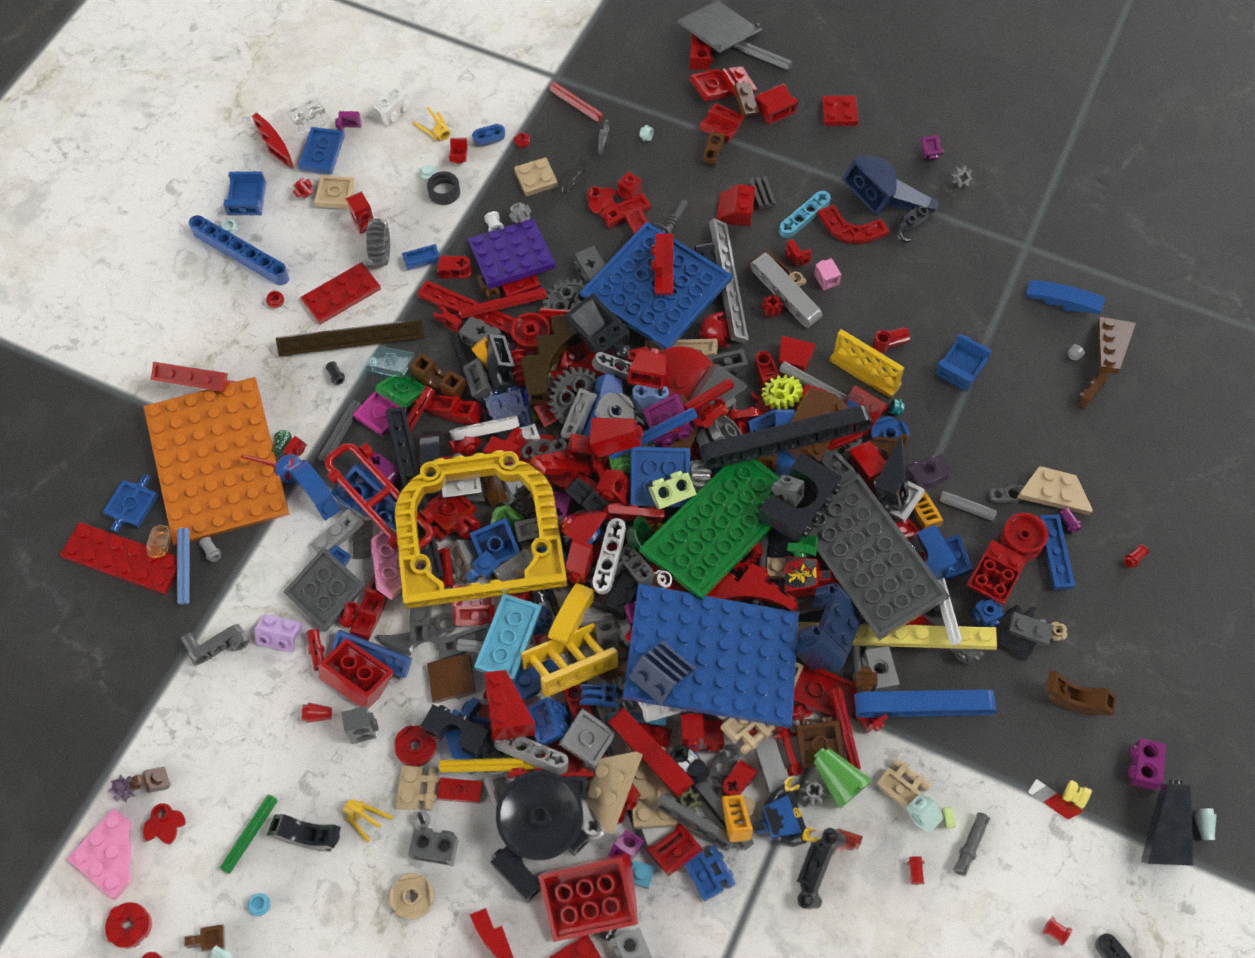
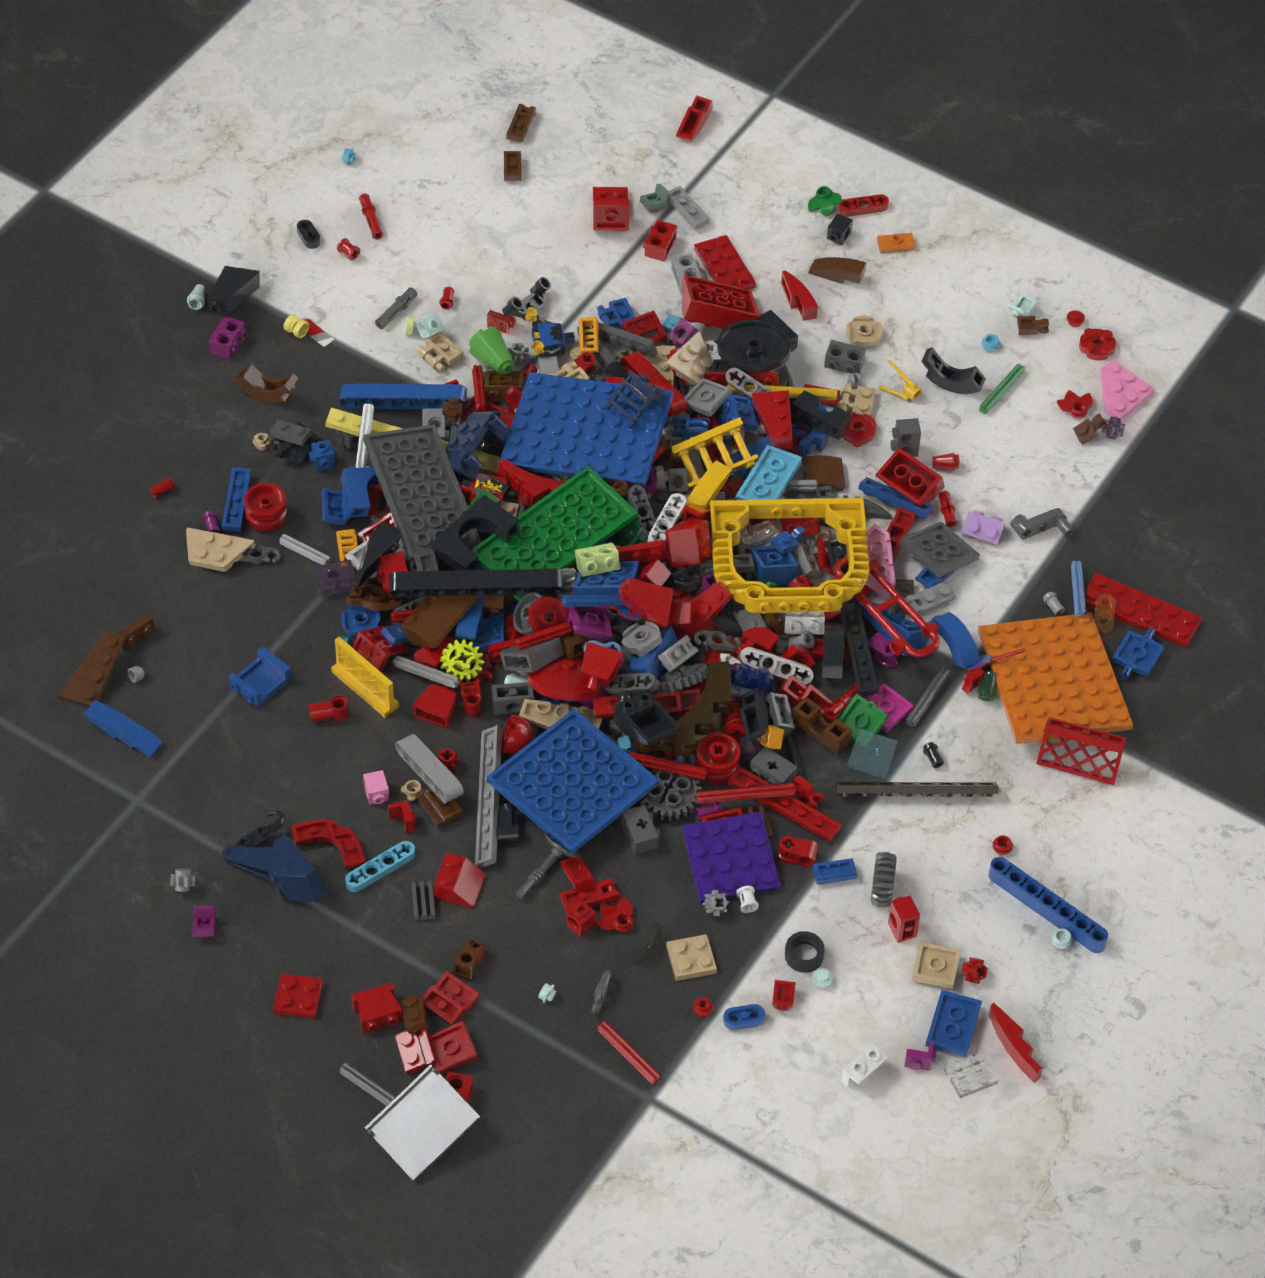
camera: 175 degrees left, 10 degrees down
(245, 193) = (1045, 975): blue panel -> none
(340, 293) = (929, 845): red plate -> none
(349, 613) = (915, 526): red pin -> none
(441, 130) = (804, 1030): yellow plant -> none
(663, 263) = (561, 791): red bracket -> none
(788, 490) = (484, 533): dark grey brick -> none
(997, 572) = (304, 480): red slope -> none

